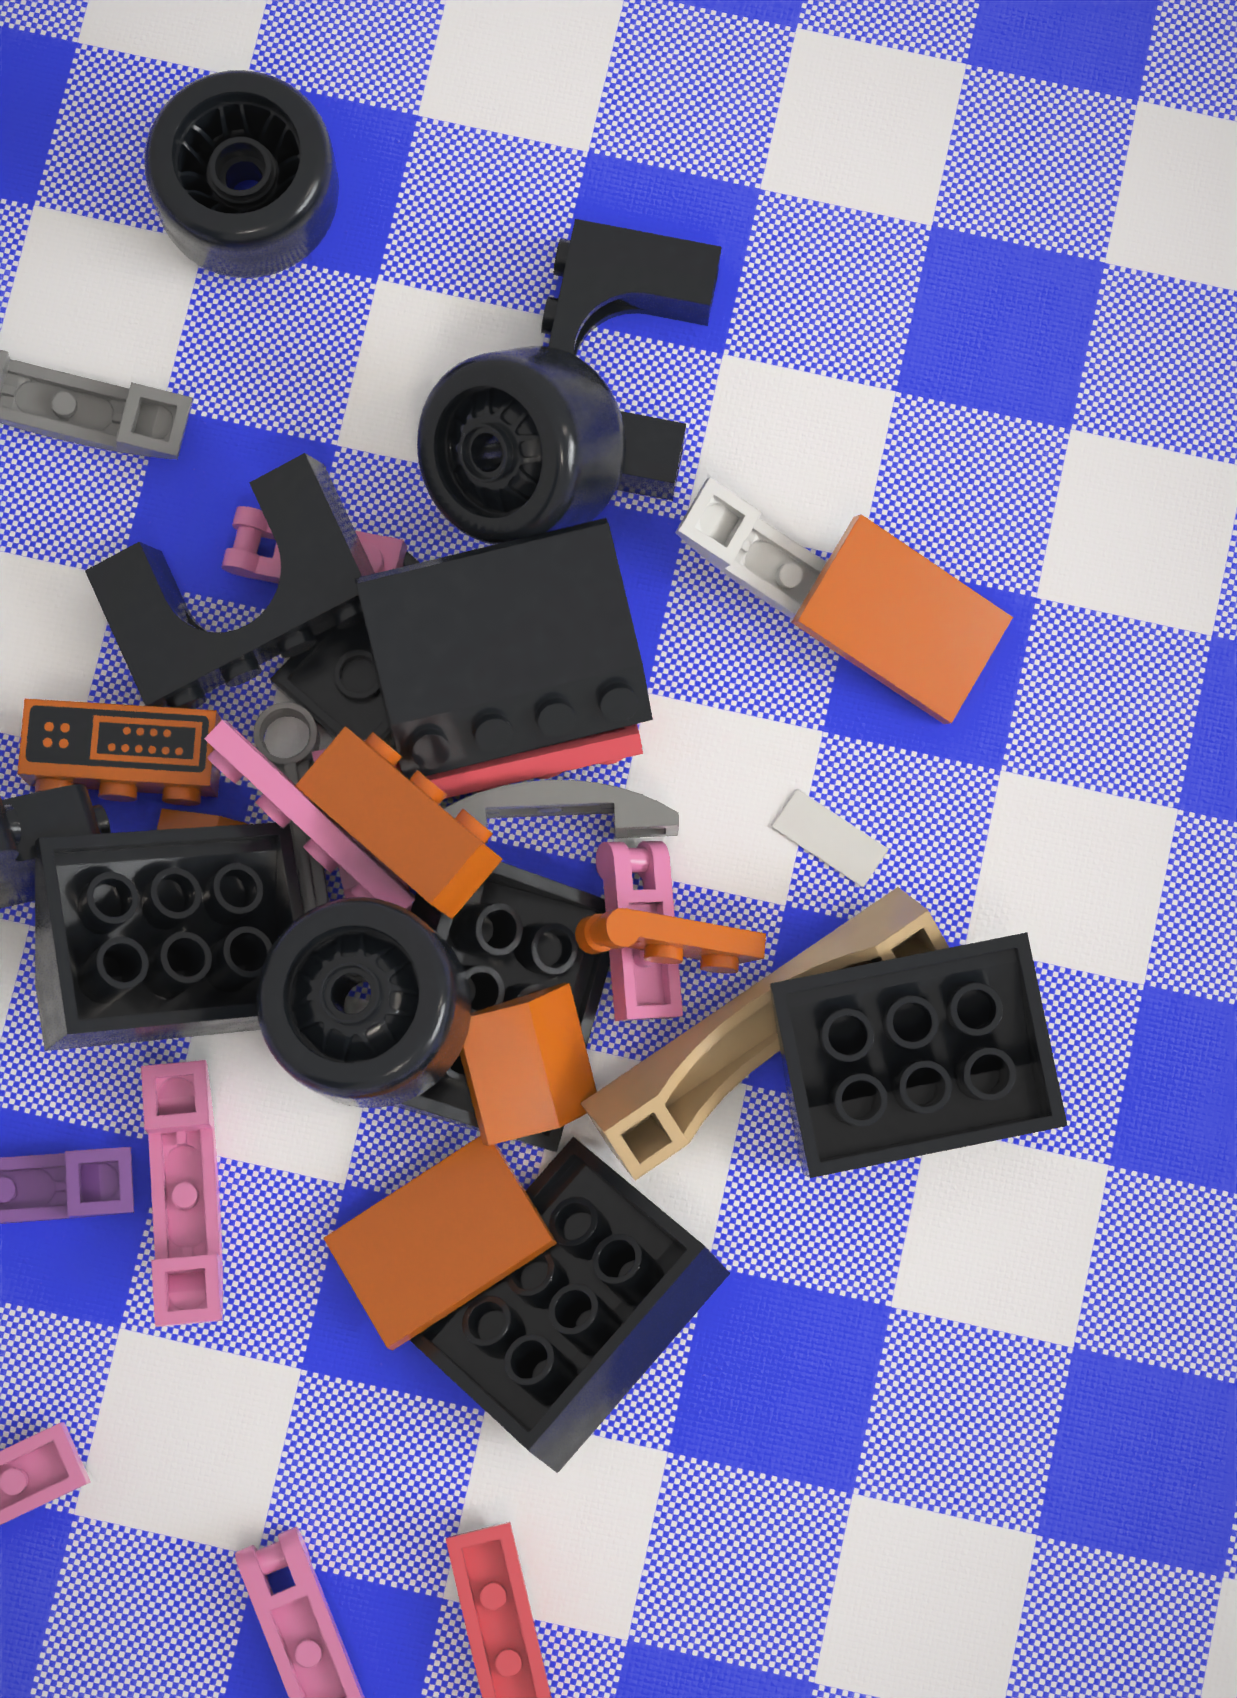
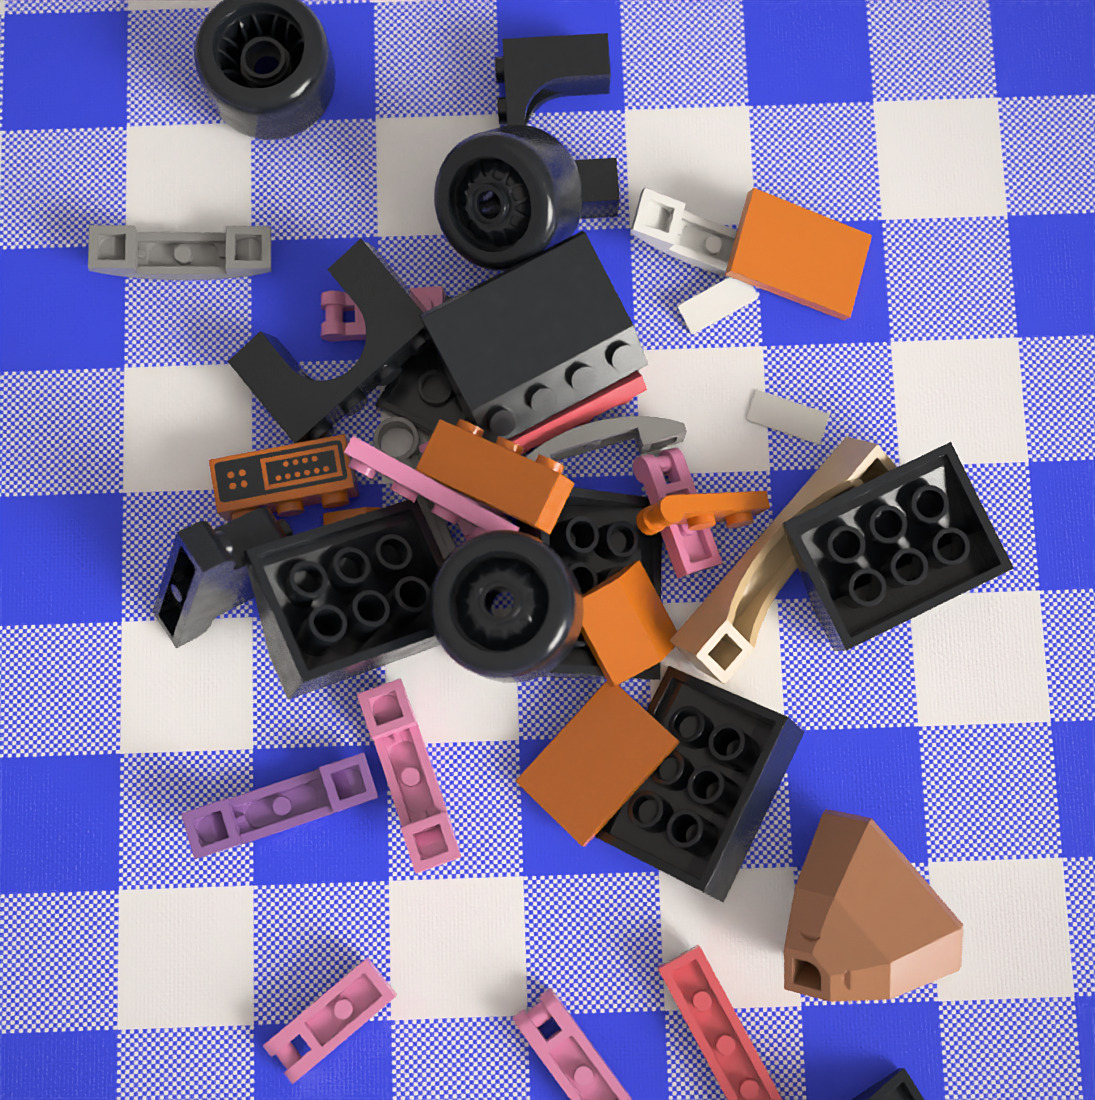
camera: 10 degrees left, 0 degrees up
(738, 1543) = (865, 918): none -> nougat brick
(772, 657) = (716, 303): none -> white sticker

